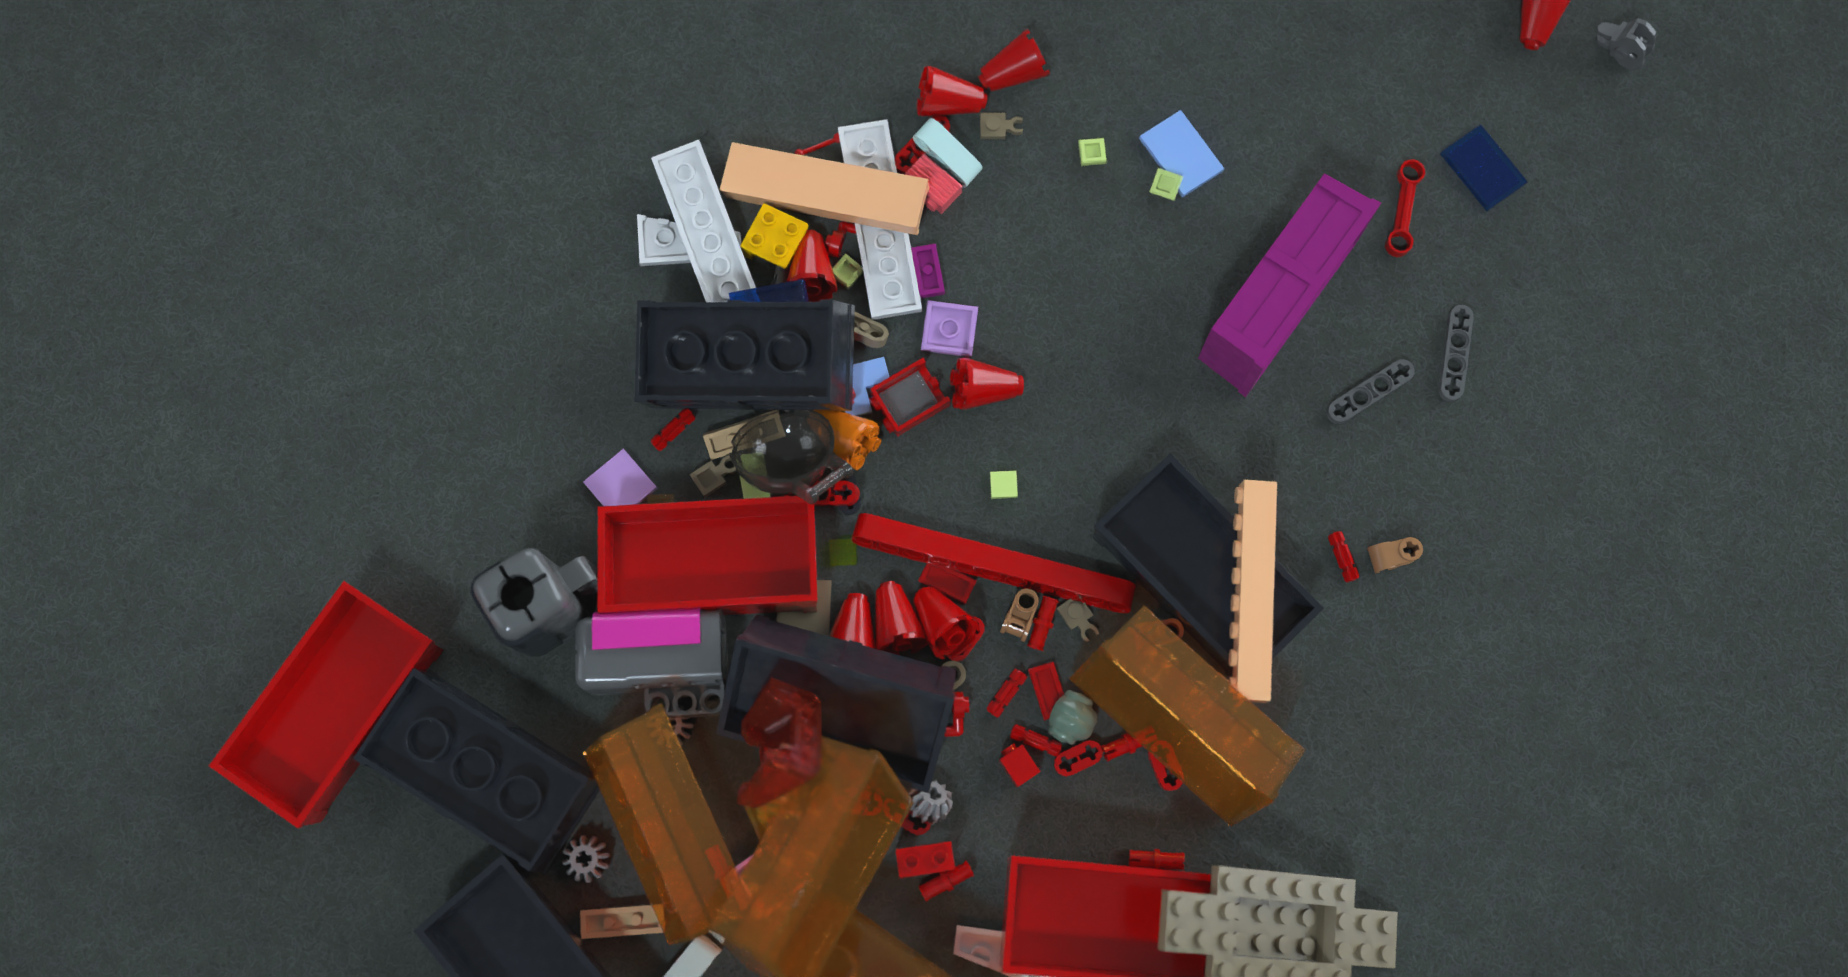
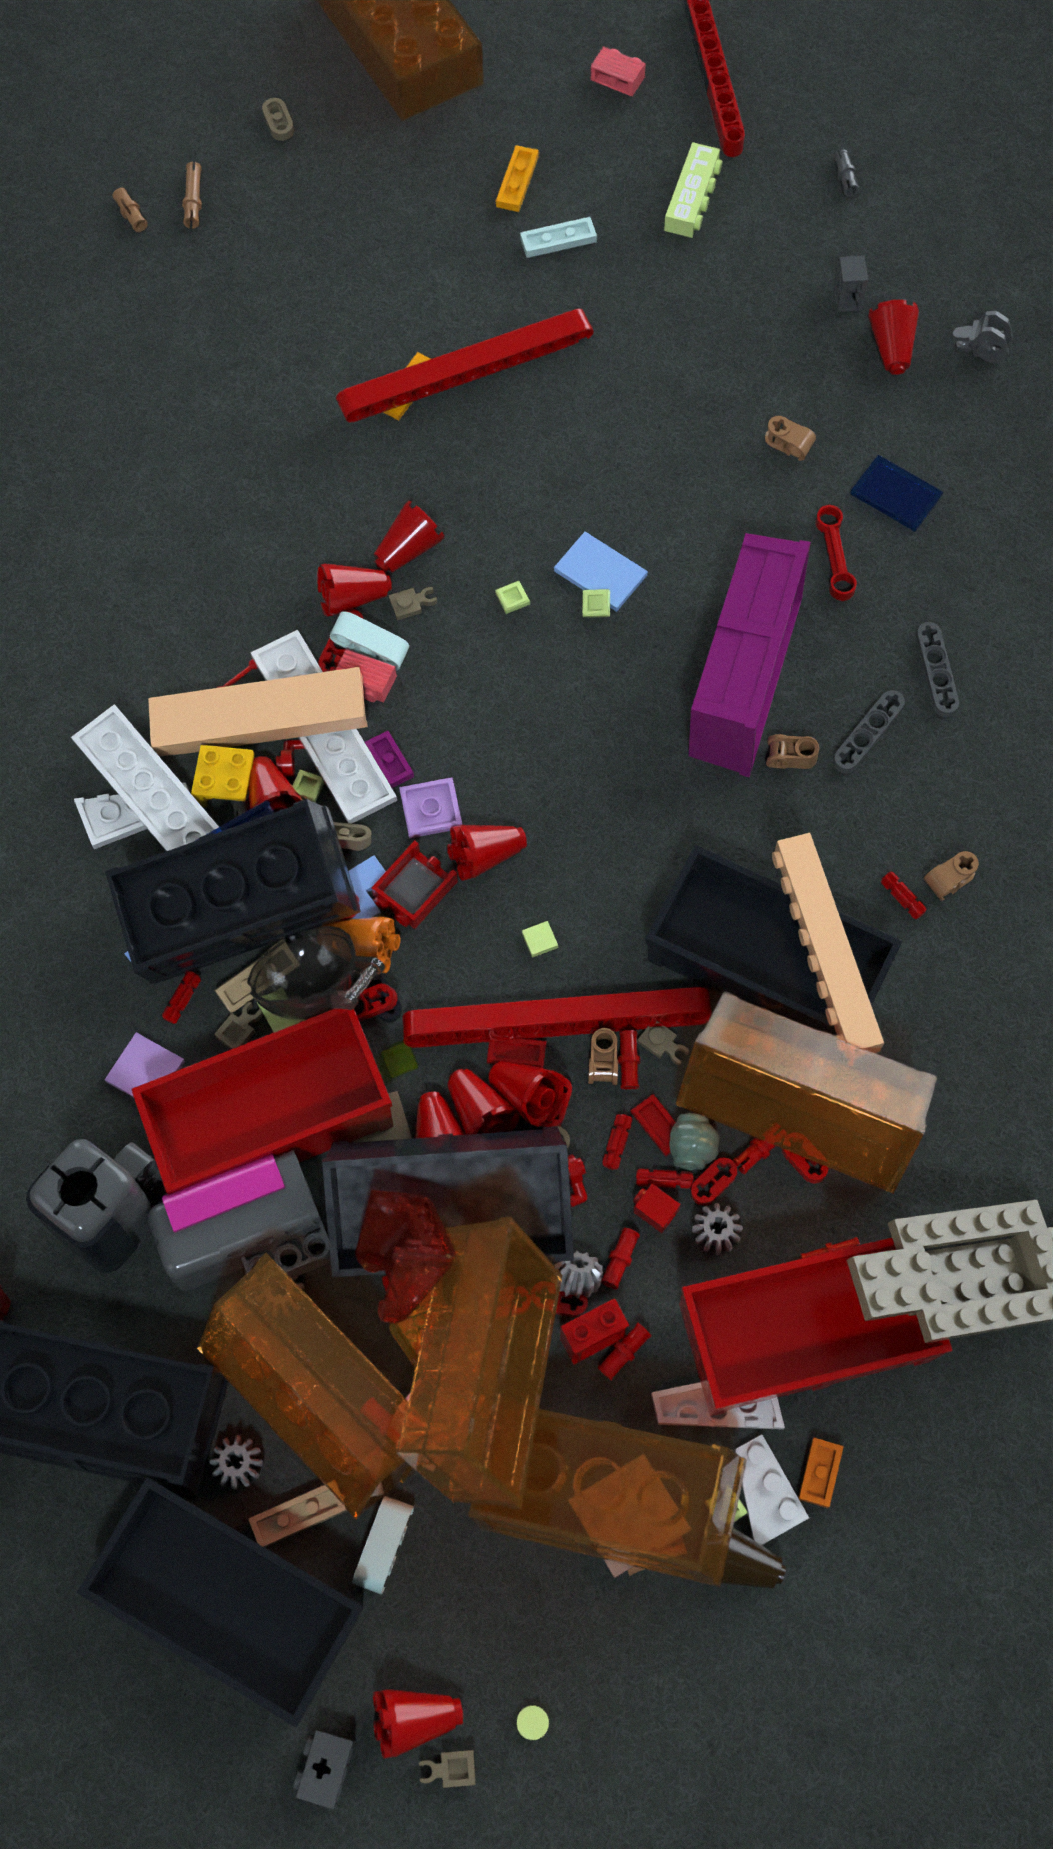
camera: 15 degrees left, 10 degrees down
(972, 798) = (620, 1258): none -> red pin
(1068, 810) = (728, 1234): none -> light grey gear
(1290, 387) = (790, 751): none -> medium nougat piece
(1406, 81) = (791, 438): none -> medium nougat piece

